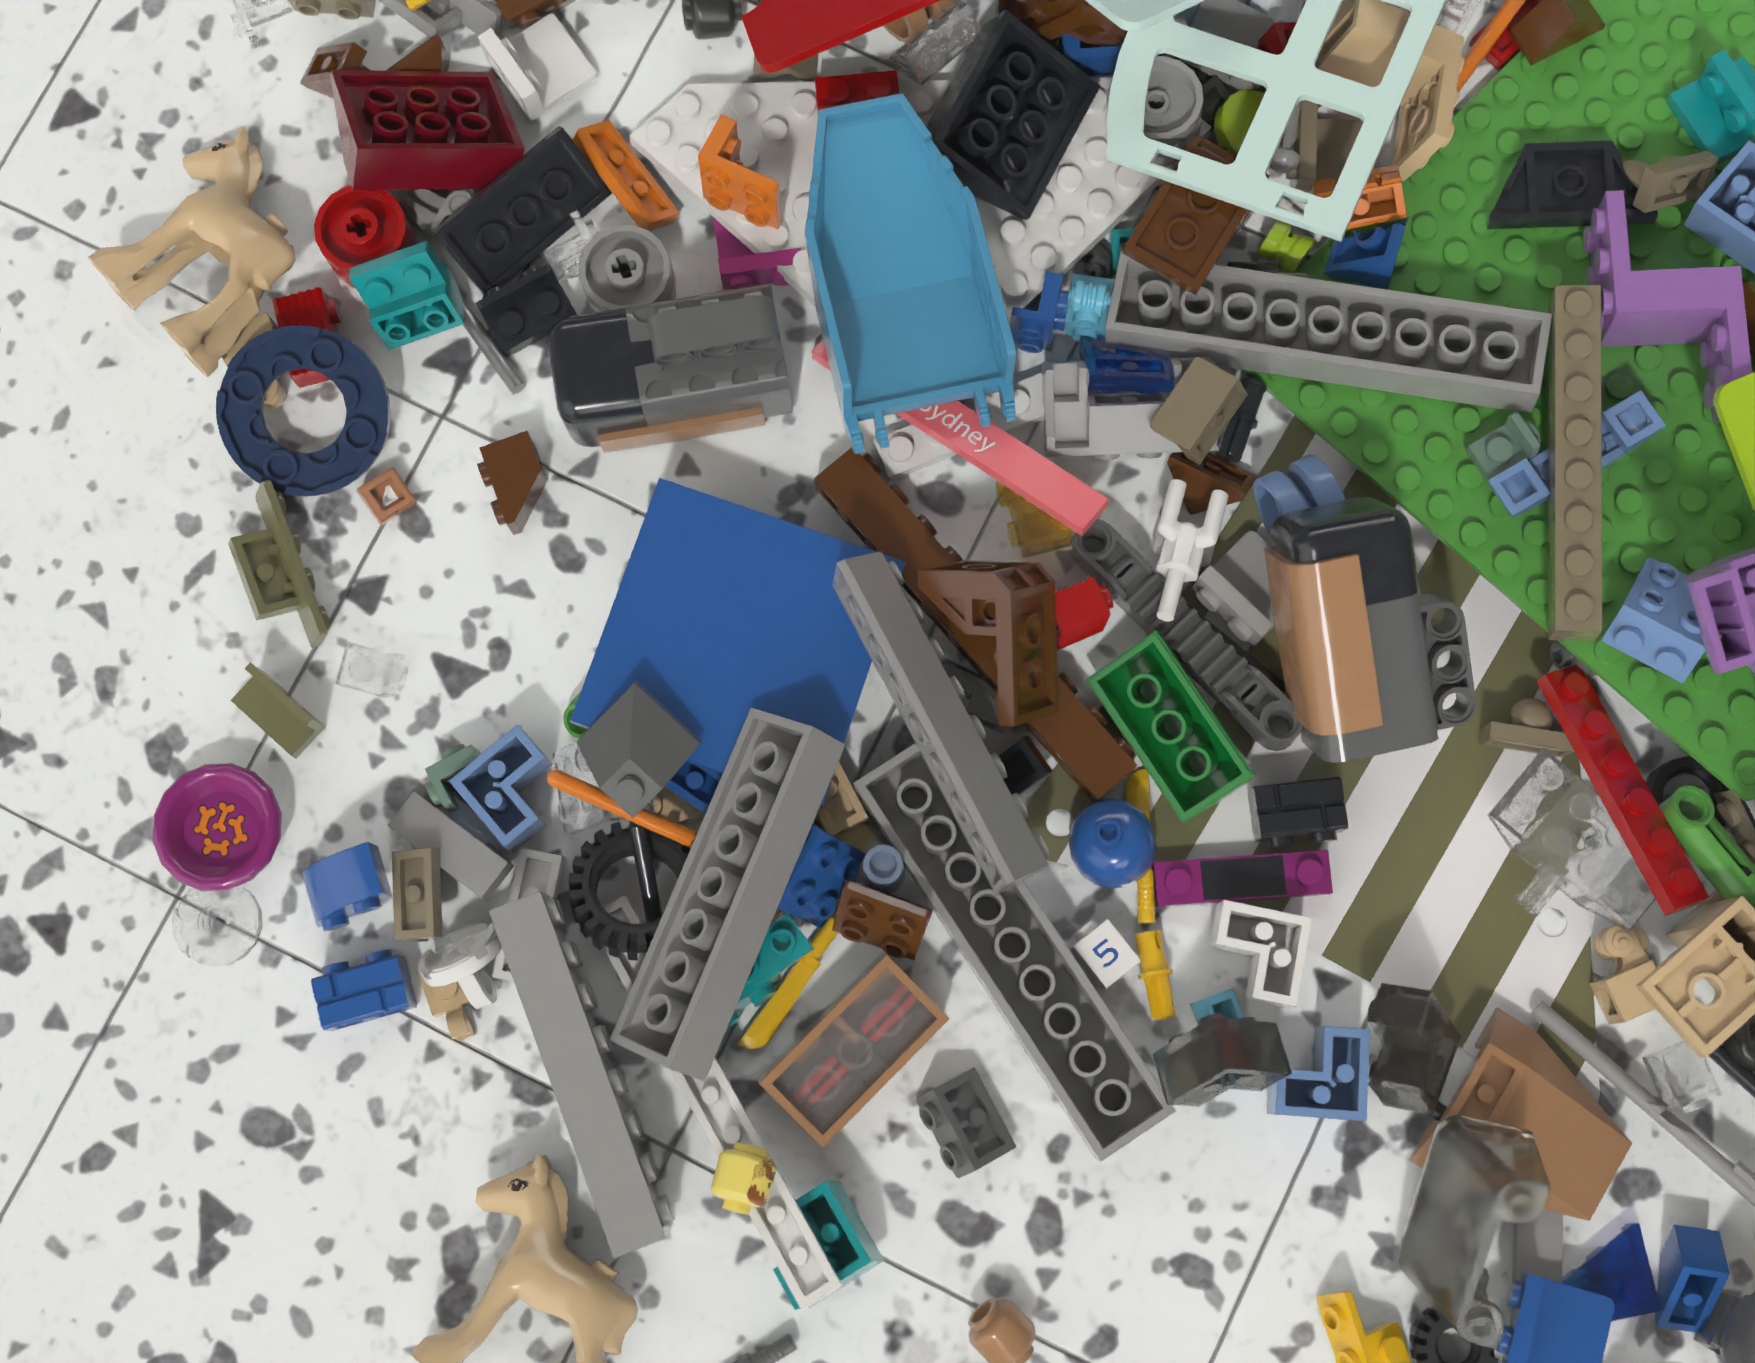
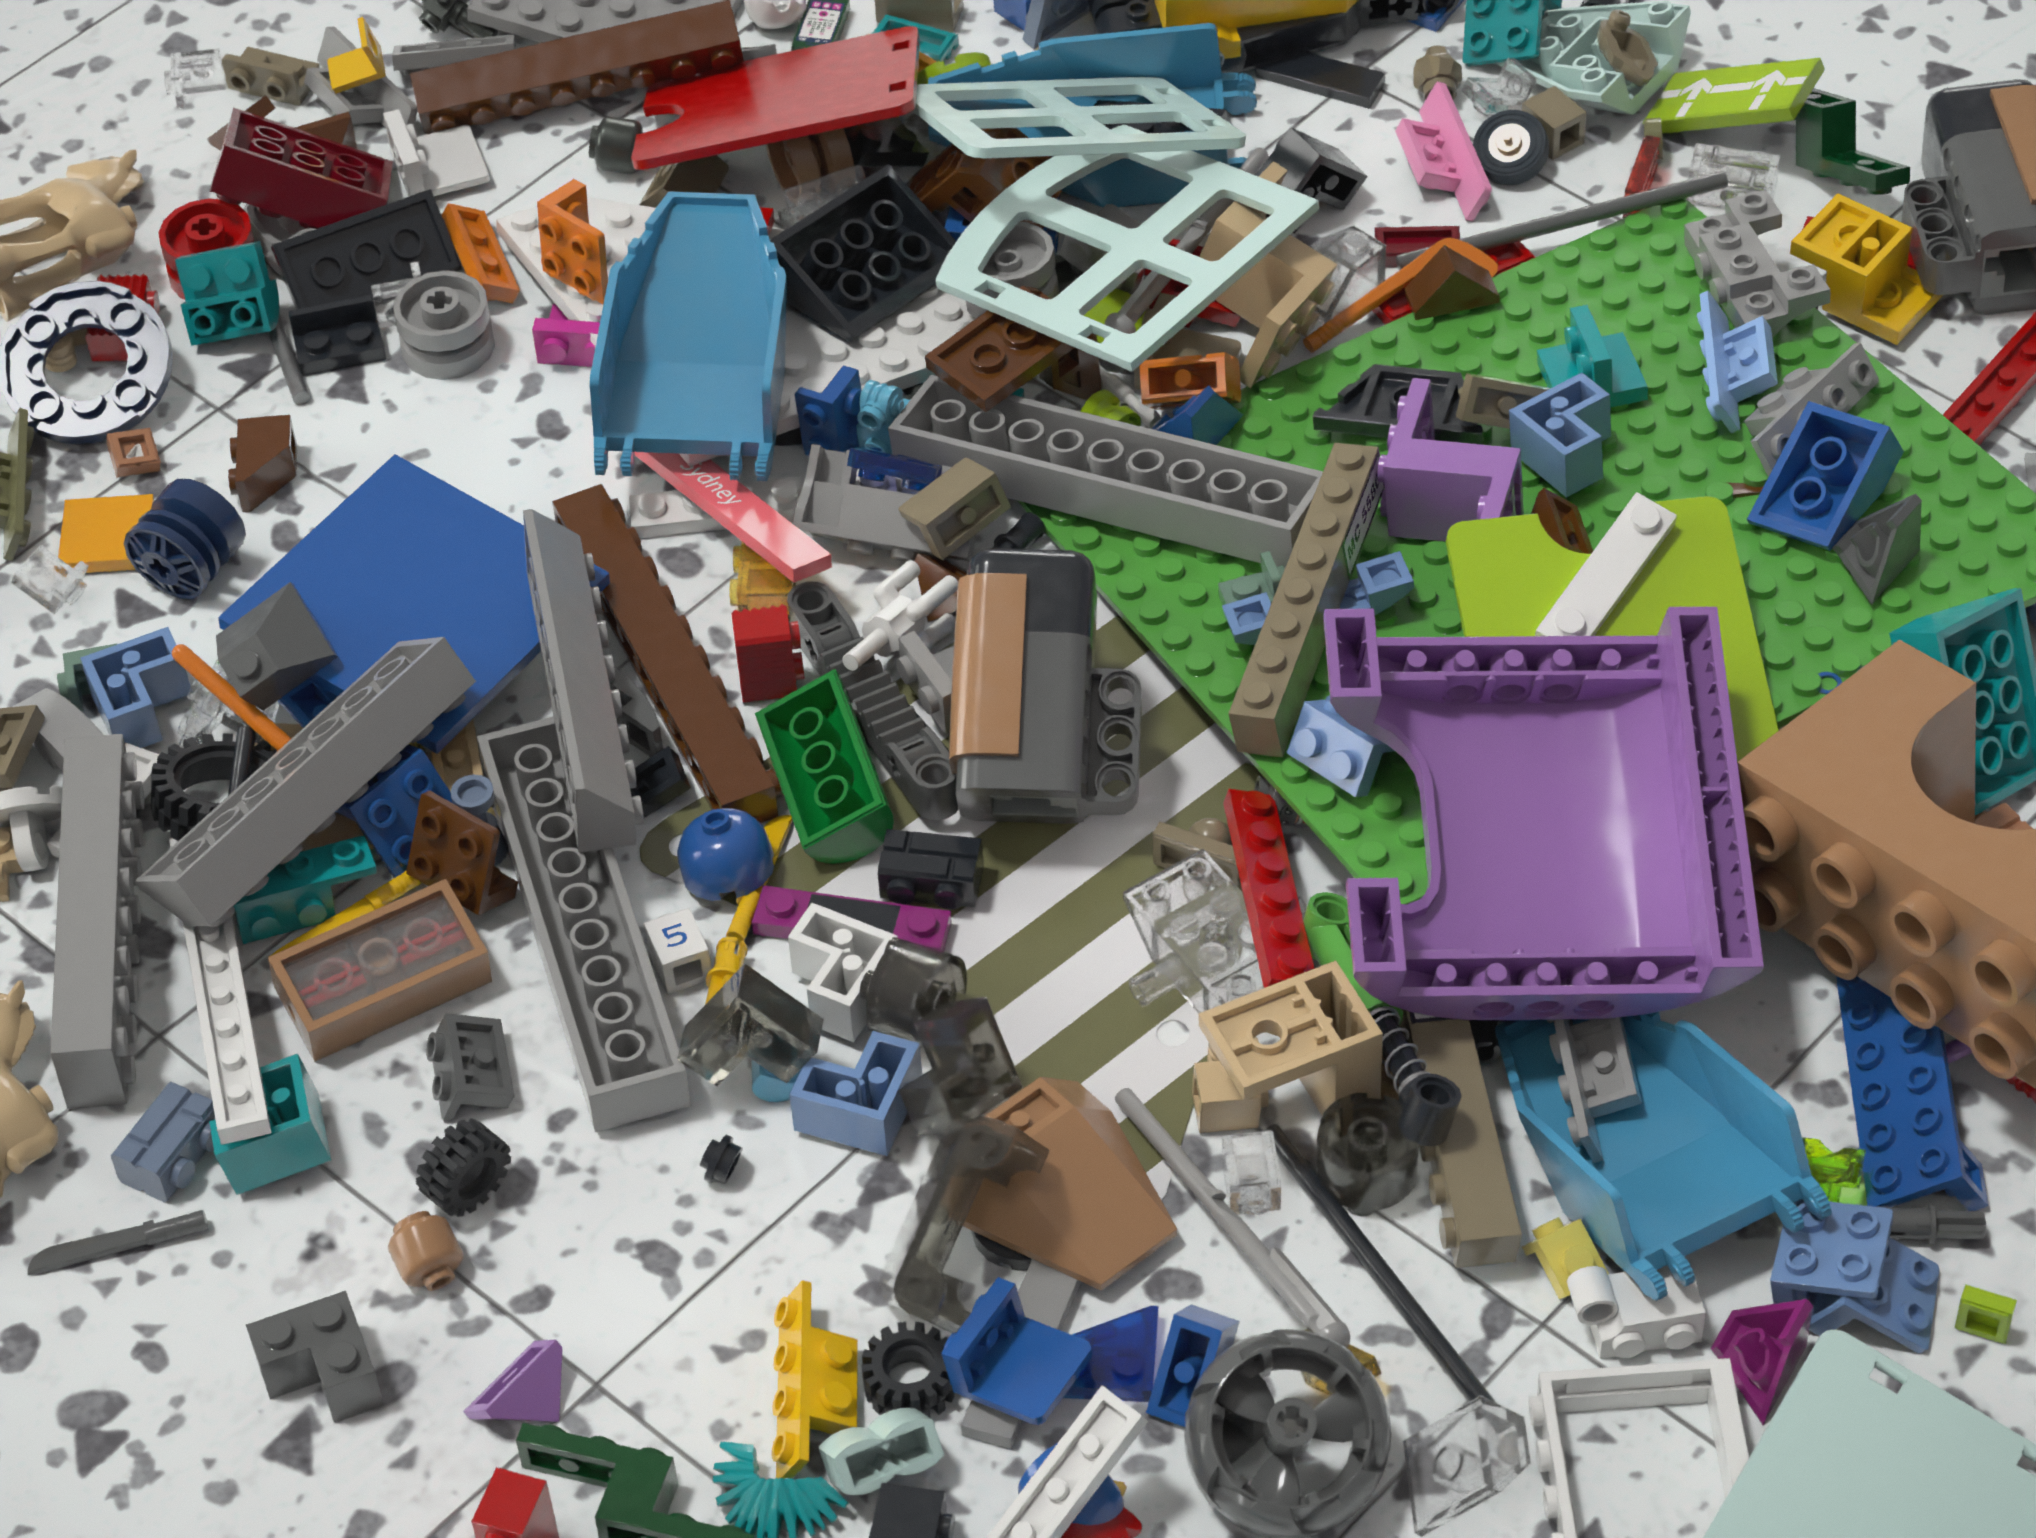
camera: 15 degrees right, 30 degrees down
(398, 597) = (97, 529): none -> light orange tile
(487, 596) = (185, 538): none -> dark blue wheel
(670, 369) = (453, 384): piece -> none
(732, 1277) = (166, 1143): none -> sand blue brick
(743, 1178) = (211, 1010): light yellow head -> none
(1009, 1249) = (463, 1167): none -> black tyre
(1023, 627) = (688, 626): reddish brown bracket -> none
(1220, 1168) = (720, 1159): none -> black plate
(1338, 964) = (910, 985): none -> clear smoke brick

